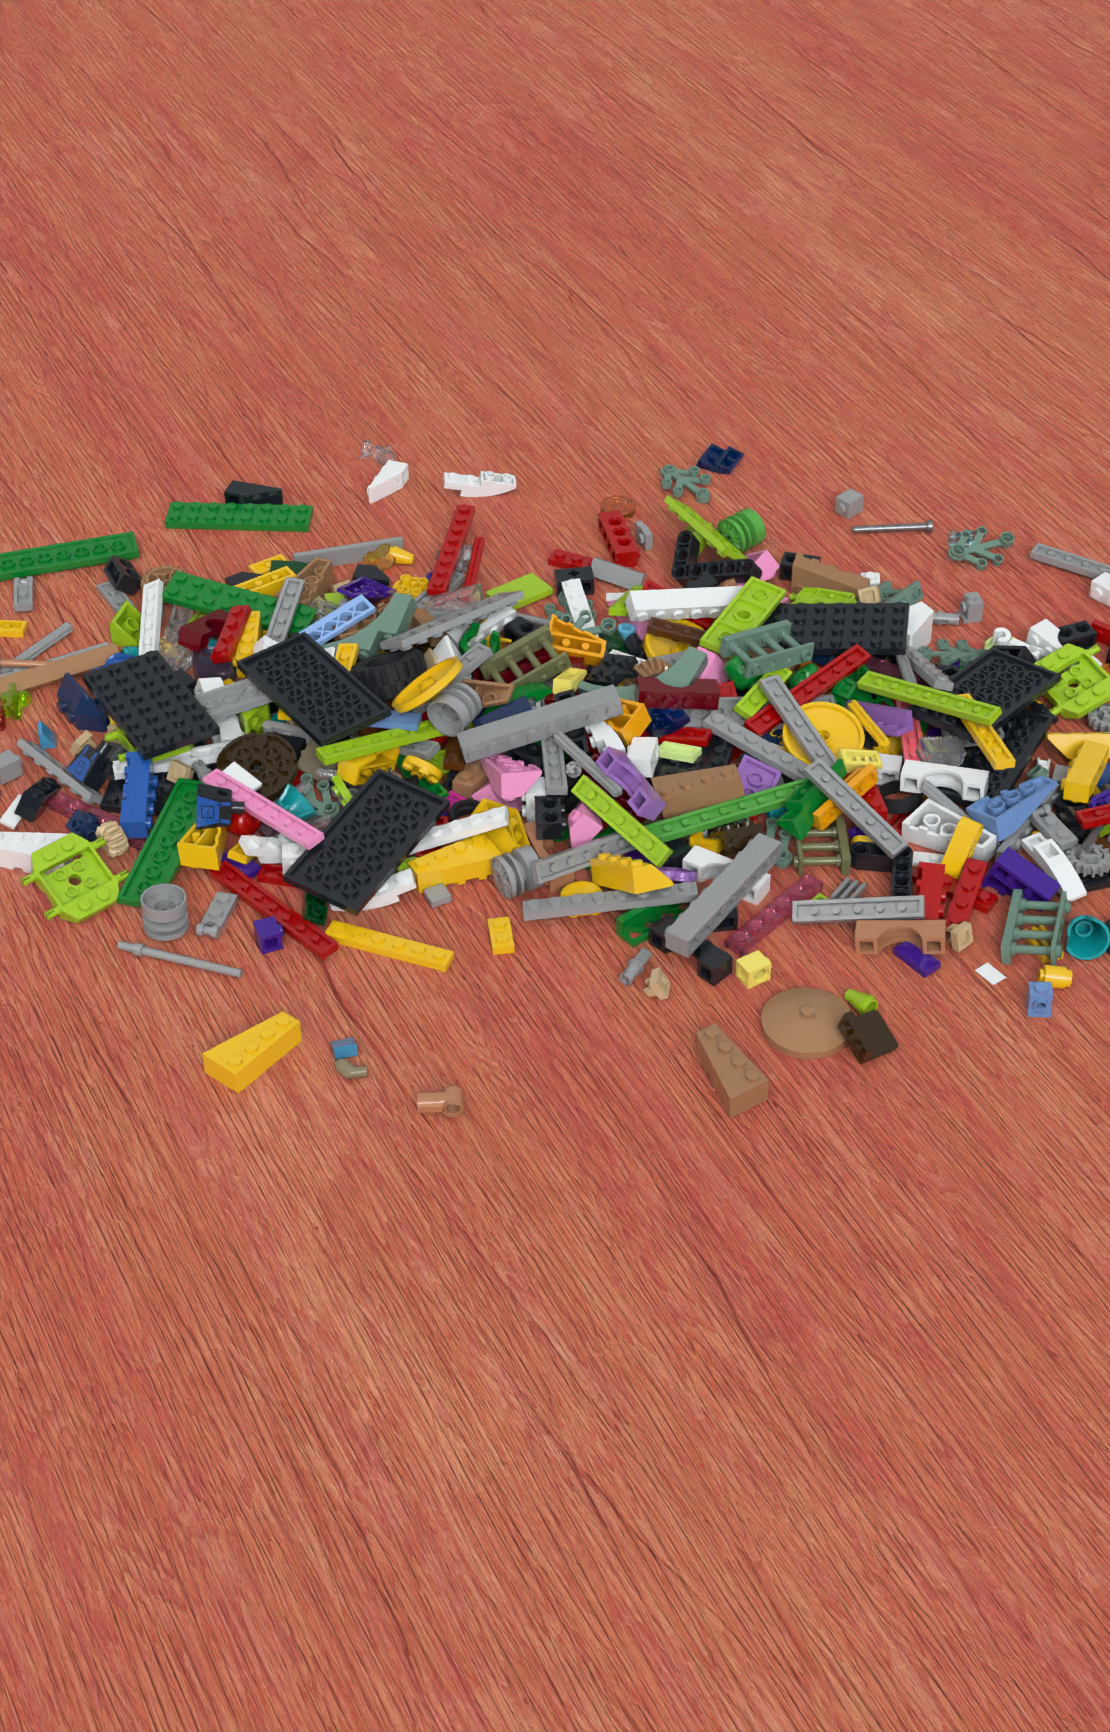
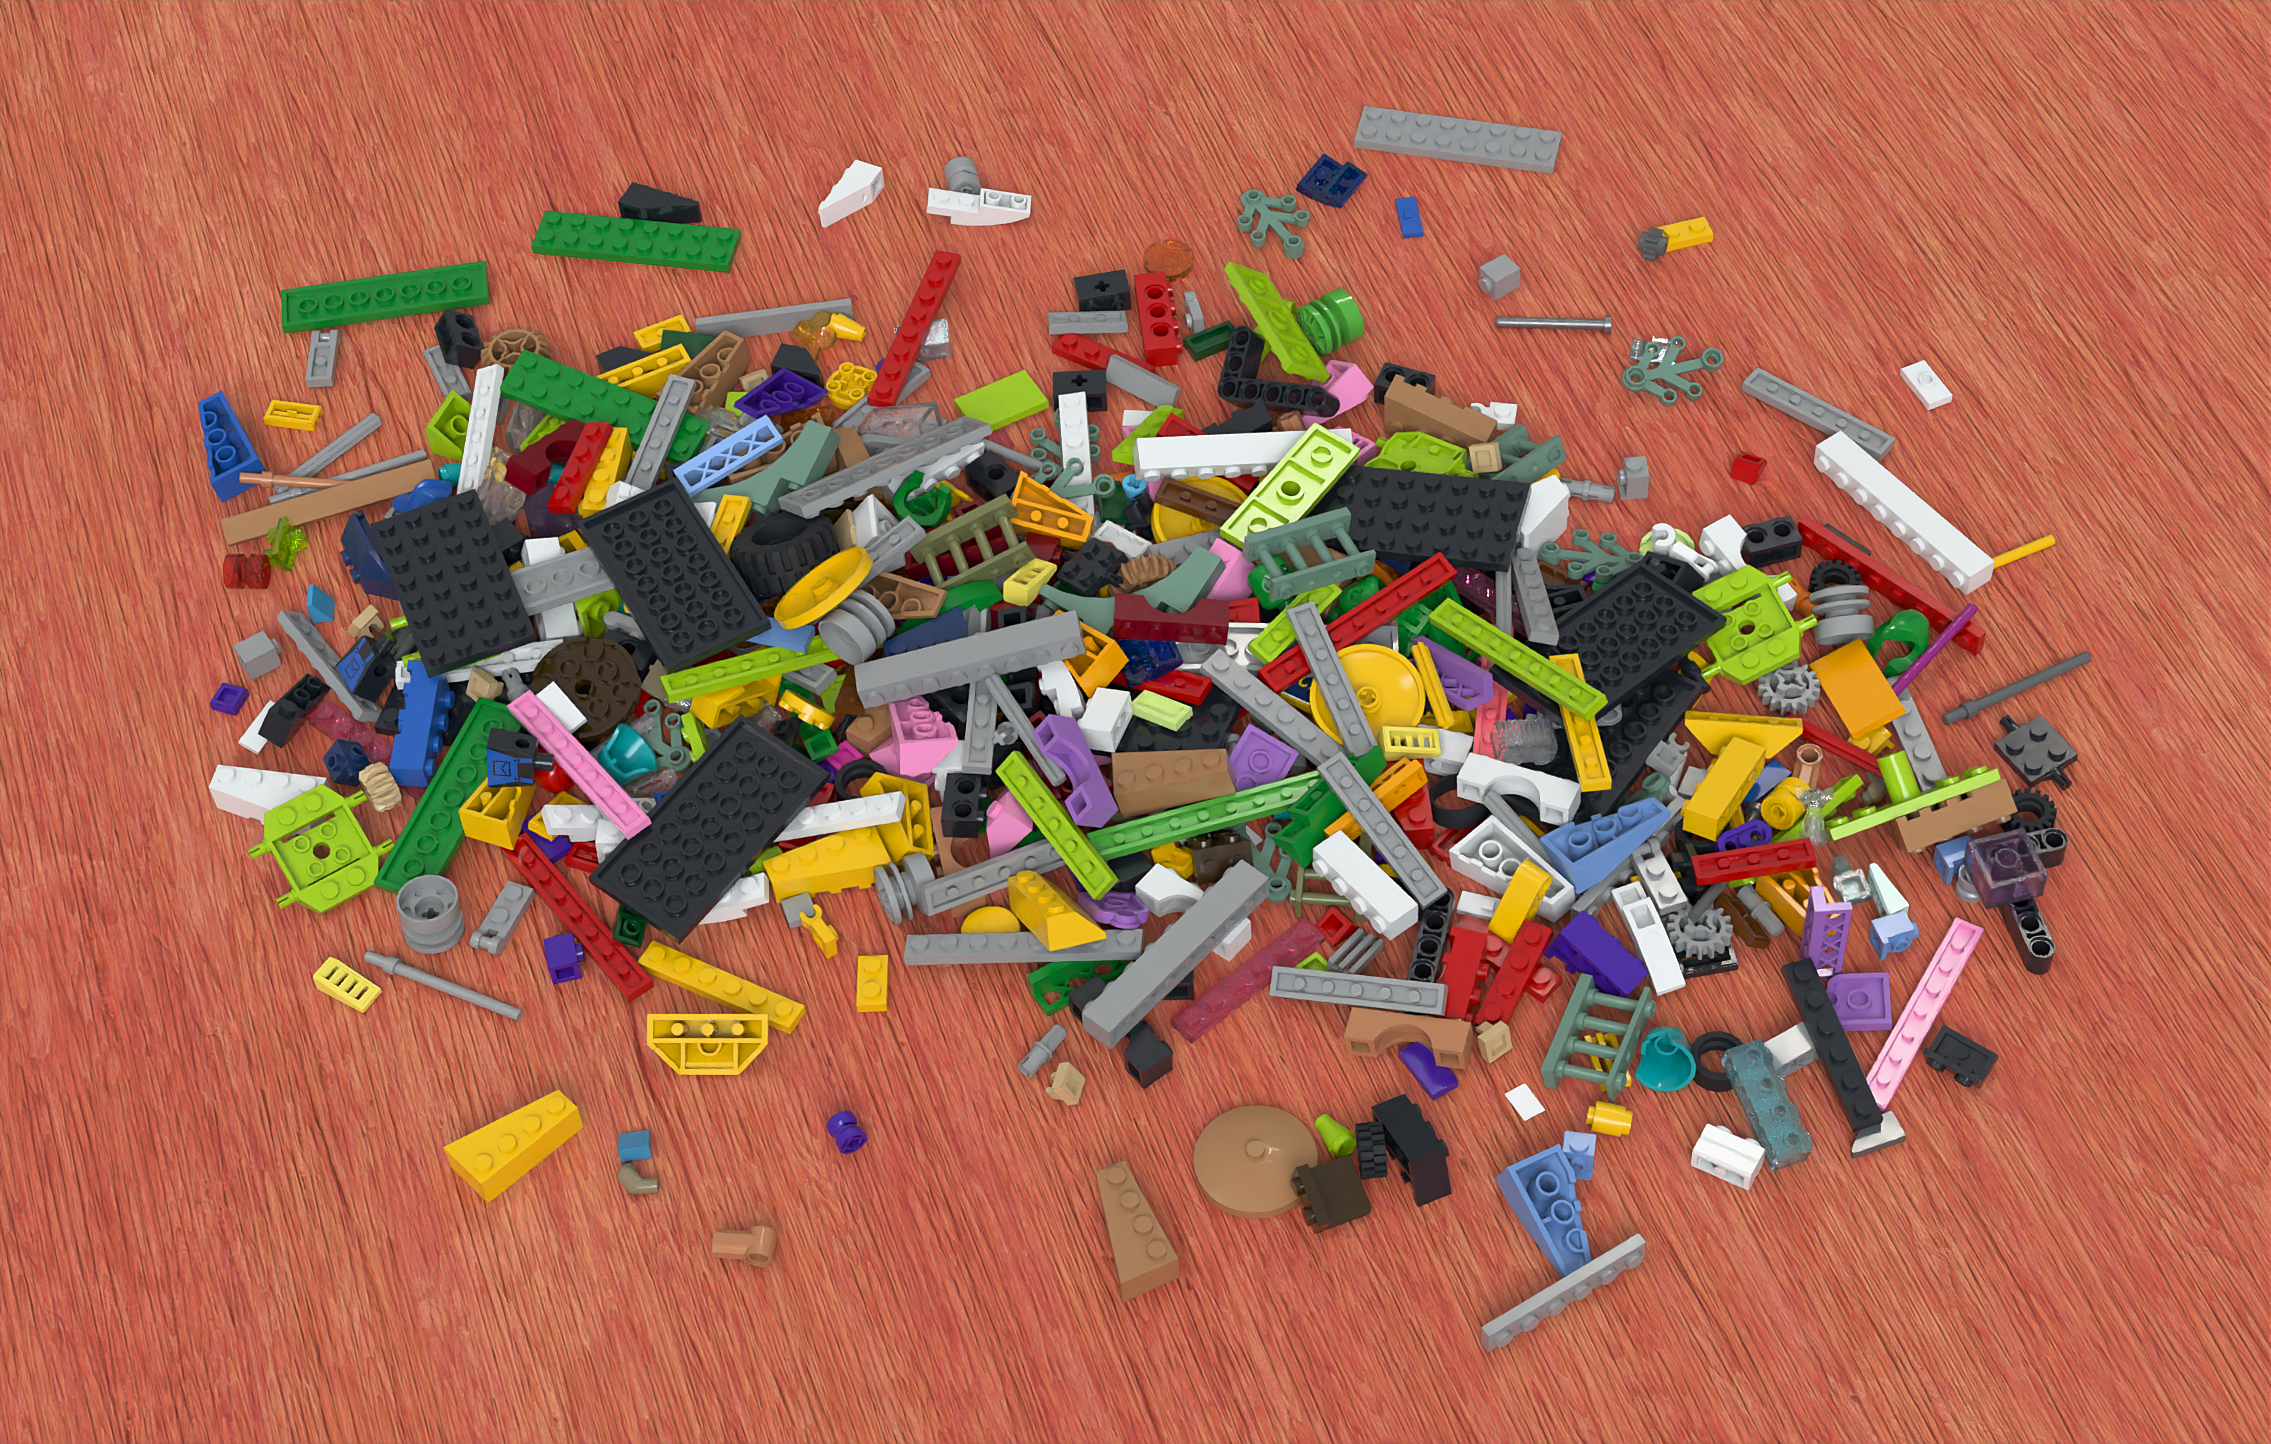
camera: 10 degrees right, 10 degrees up
(95, 954) = (333, 972): none -> light yellow slope
(379, 453) = (852, 144): clear animal -> none
(389, 975) = (708, 1041): none -> yellow wedge
(458, 906) = (823, 935): none -> yellow plate
(464, 465) = (962, 176): none -> light grey wheel
(475, 560) = (941, 357): red axle -> none
(502, 1025) = (847, 1133): none -> dark purple wheel
(570, 543) = (1087, 322): none -> light grey tile
(577, 527) = (1103, 292): none -> black brick
(658, 550) = (1209, 341): none -> dark green tile
(753, 969) = (1199, 1070): light yellow brick -> none
(777, 476) = (1409, 217): none -> blue piece
(800, 432) = (1458, 139): none -> light grey plate
(830, 877) = (1336, 926): none -> red slope
(849, 844) = (1365, 885): none -> white brick
(892, 1005) = (1371, 1150): none -> black tyre
(922, 1002) = (1415, 1148): none -> black wedge
(948, 479) = (1653, 243): none -> dark grey gear
(966, 475) = (1687, 233): none -> yellow plate
(1022, 1027) = (1547, 1205): none -> medium blue wedge
(1039, 757) = (1667, 756): none -> light grey plate
(1045, 600) = (1747, 468): none -> red slope
(1050, 1084) = (1556, 1297): none -> light grey plate

